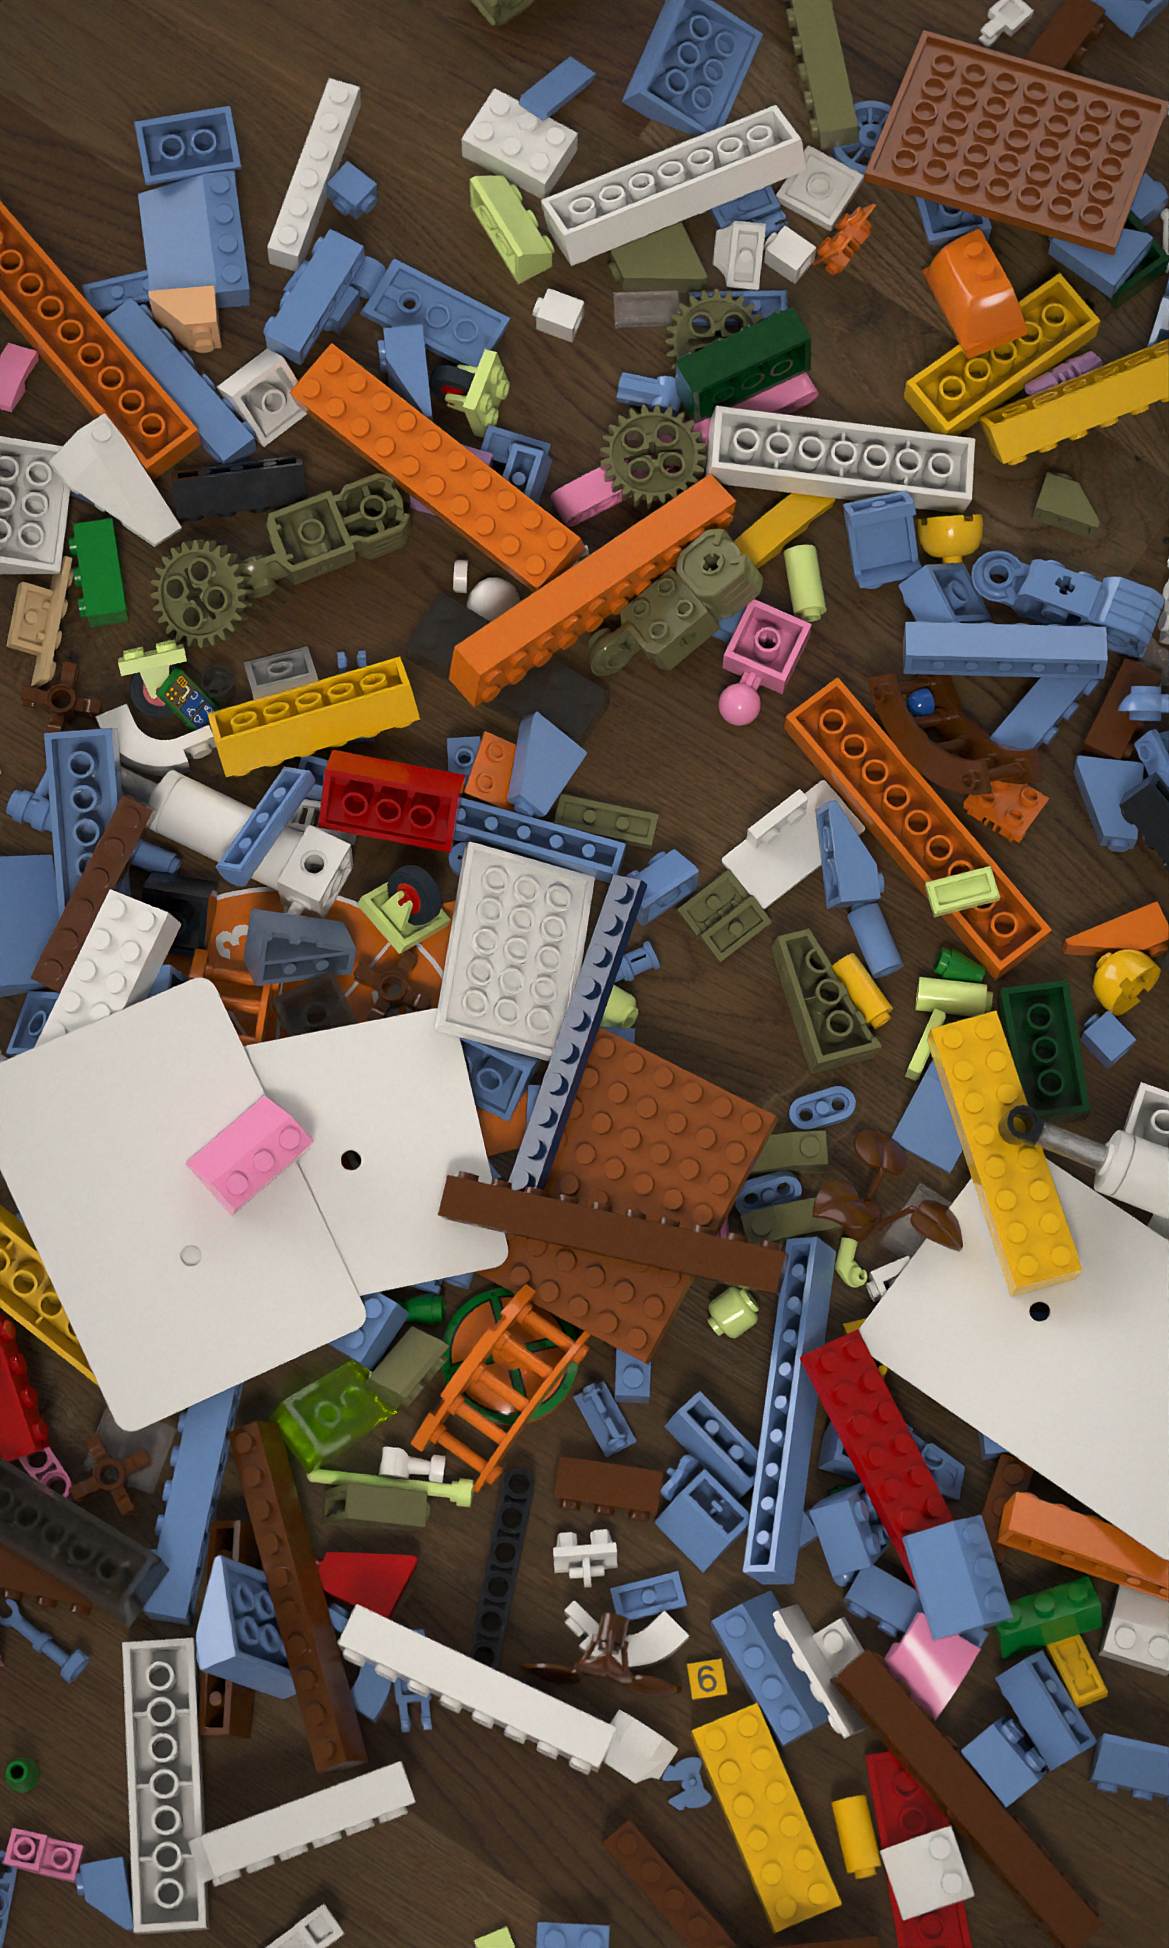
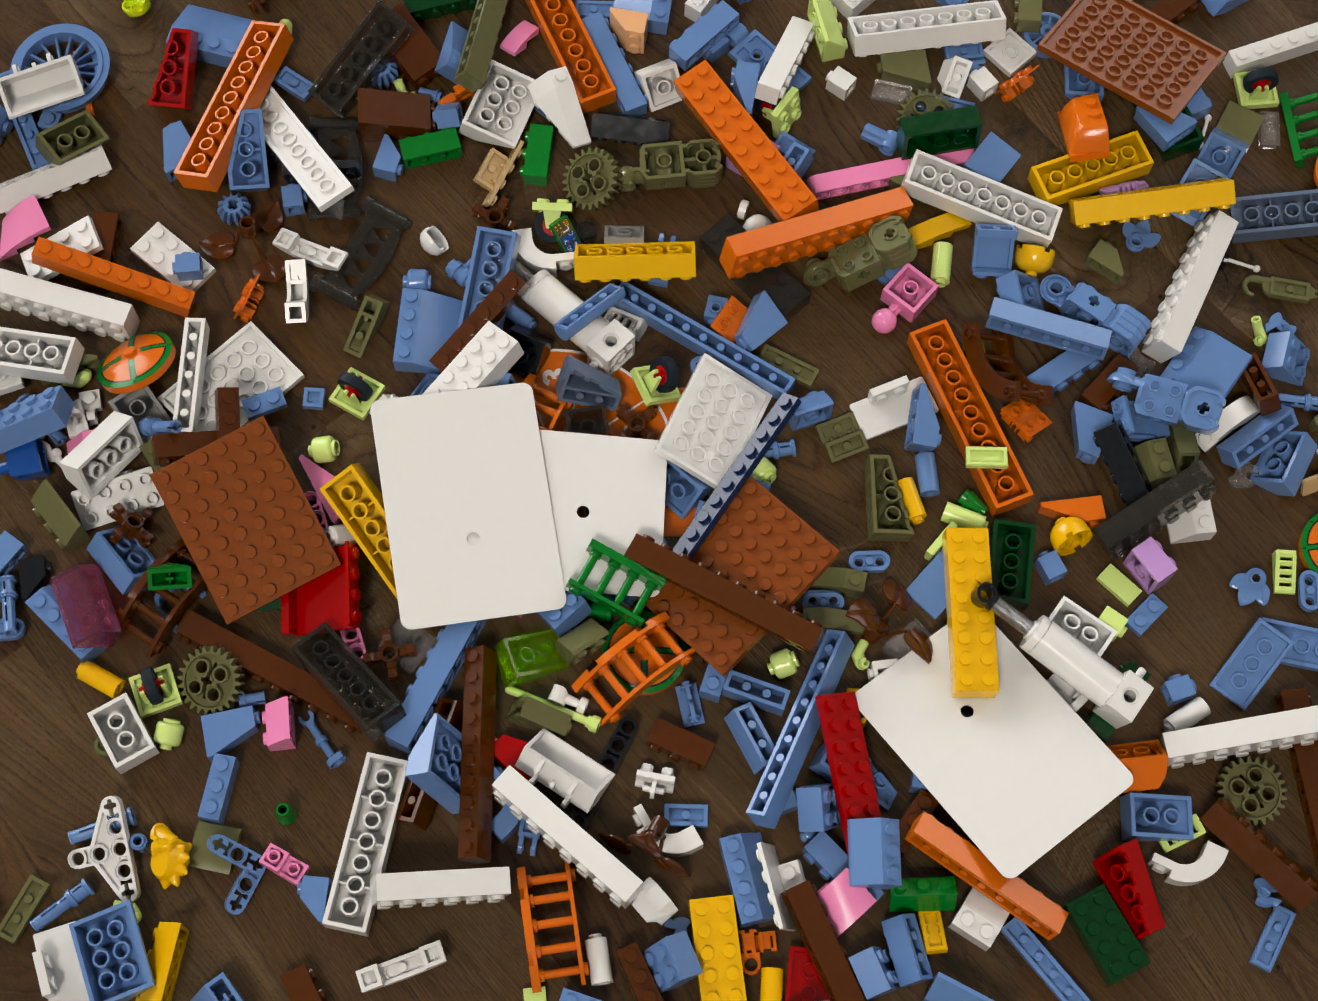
camera: 15 degrees right, 5 degrees down
(250, 1154) = (524, 490): bright pink slope -> none
(391, 800) = (665, 318): red slope -> none
(441, 1583) = (564, 770): none -> white piece
(459, 305) = (784, 60): none -> white brick
(460, 1236) = (633, 572): none -> green fence
(462, 1841) = (532, 925): none -> orange fence
(578, 1862) = (598, 960): none -> white brick
(647, 429) = (873, 155): olive gear -> none
(687, 1467) = (730, 745): medium blue piece -> none
(693, 1834) = (672, 961): none -> medium blue brick
(703, 1520) = (731, 779): medium blue slope -> none
(704, 1372) = (758, 692): none -> medium blue brick
(706, 1679) = (707, 874): yellow tile -> none
(812, 1766) = (756, 943): none -> orange piece
(839, 384) = (992, 158): none -> medium blue panel
(920, 702) = (991, 346): blue hinge -> none
(1110, 445) = (1141, 235): none -> medium blue plate

